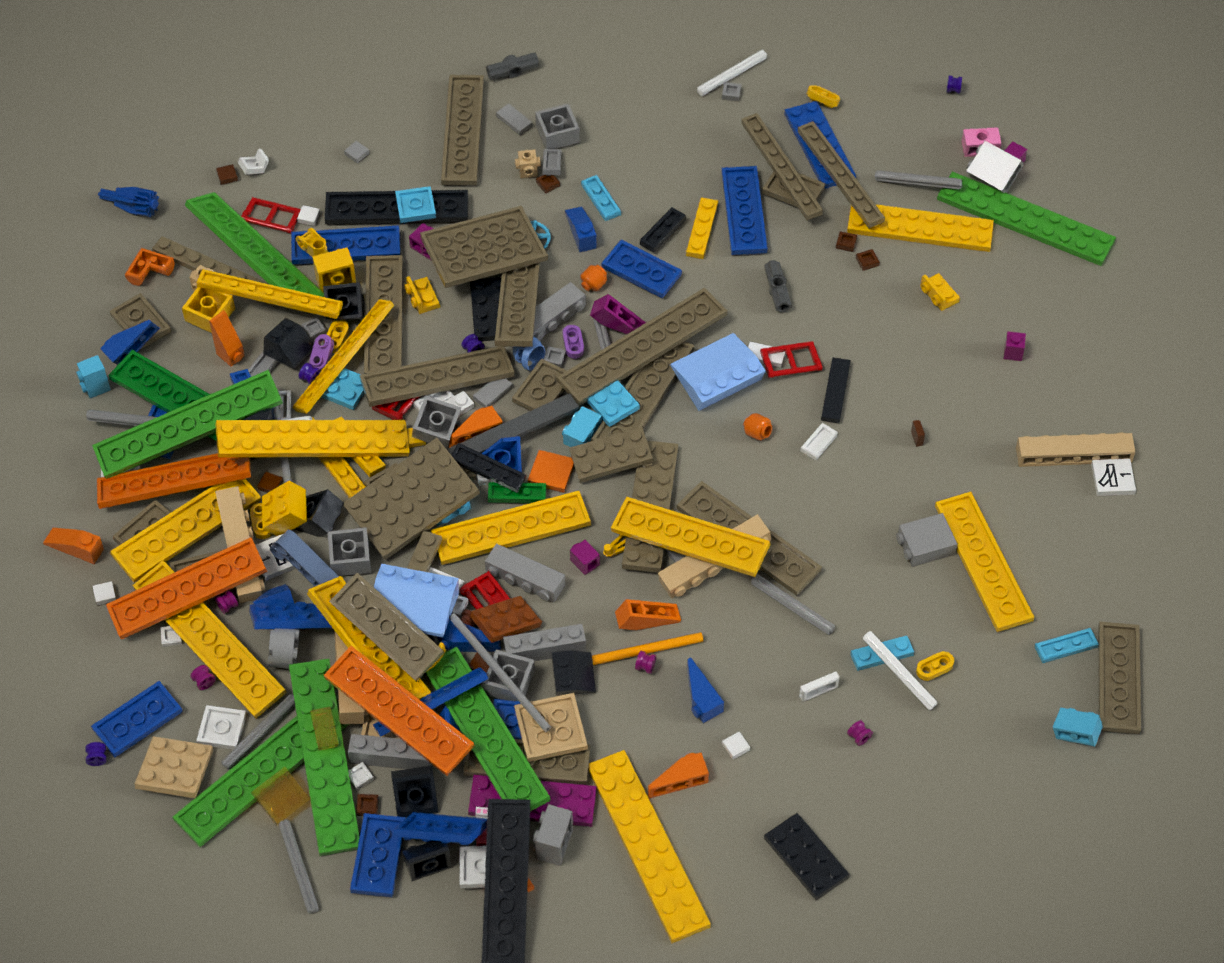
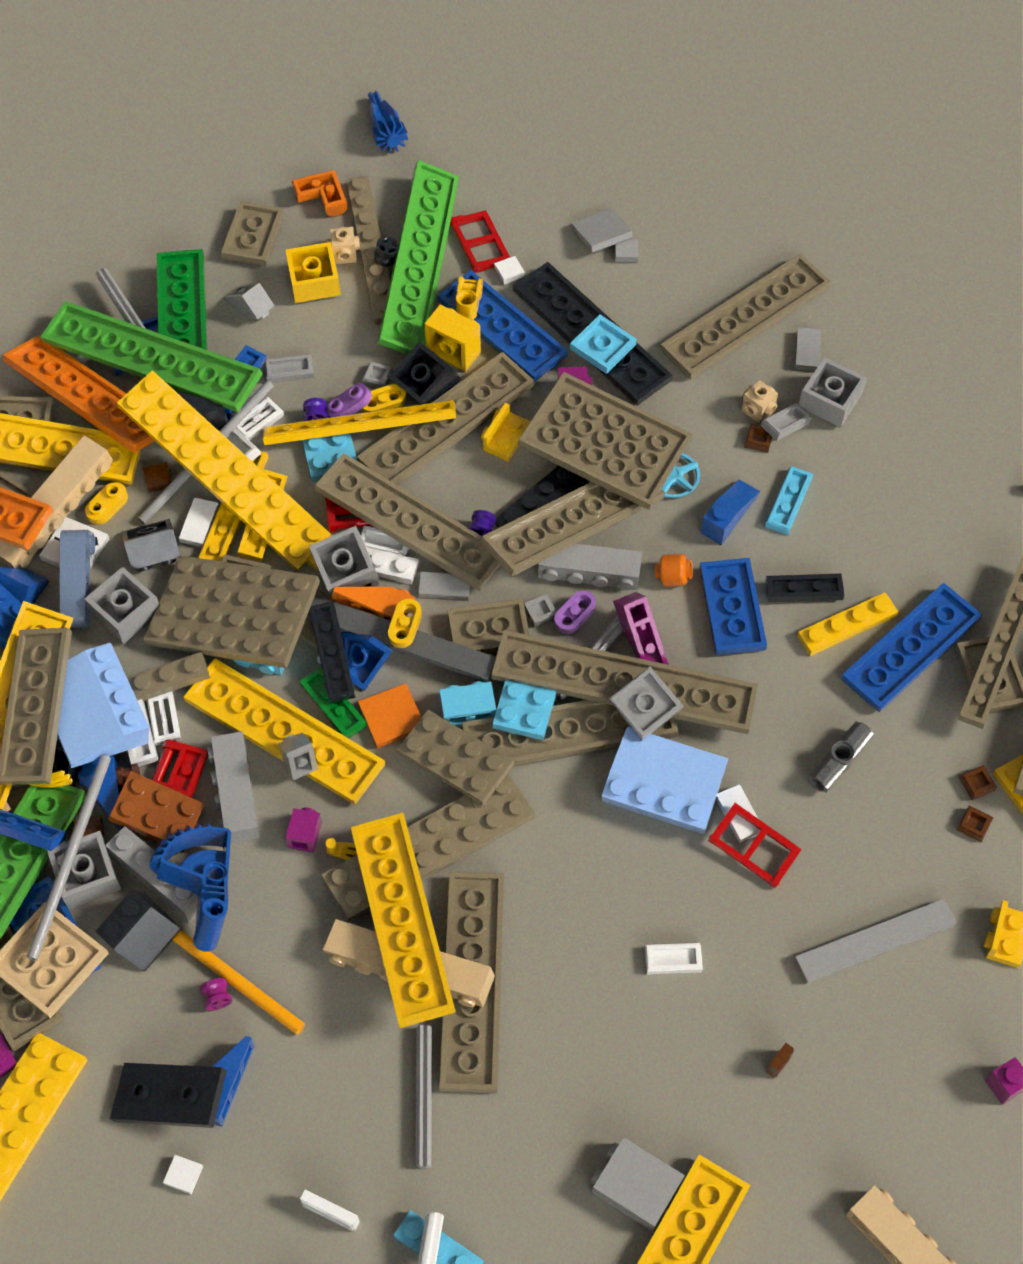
camera: 50 degrees right, 5 degrees up
(92, 377) = (144, 241): medium azure brick -> none
(130, 339) = (212, 239): blue slope -> none
(191, 354) = (250, 301): none -> light grey slope
(226, 339) = (281, 311): orange slope -> none
(227, 174) = (493, 171): reddish brown tile -> none
(235, 261) = (386, 251): none -> black wheel
(255, 164) = (523, 181): white bracket -> none
(269, 294) = (368, 307): yellow tile -> none
(284, 508) = (123, 509): yellow brick -> none
(288, 343) = (331, 365): black slope -> none
(324, 480) = (198, 522): none -> white tile
(331, 152) = (602, 230): none -> light grey tile
(508, 420) = (404, 625): none -> yellow plate
(512, 66) = (871, 297): dark grey piece -> none
(526, 354) = (525, 582): medium blue helmet -> none
(540, 523) = (298, 755): none -> light grey slope
(578, 612) = (201, 873): none -> blue arm
(646, 614) = (280, 950): orange slope -> none
(669, 342) = (646, 703): none -> light grey plate
(683, 774) = (97, 1144): orange slope -> none
(687, 718) = (168, 1095): none -> black plate
(757, 426) = (629, 878): orange head -> none
(835, 390) = (760, 924): black tile -> none
(890, 348) = (875, 941): none -> light grey tile

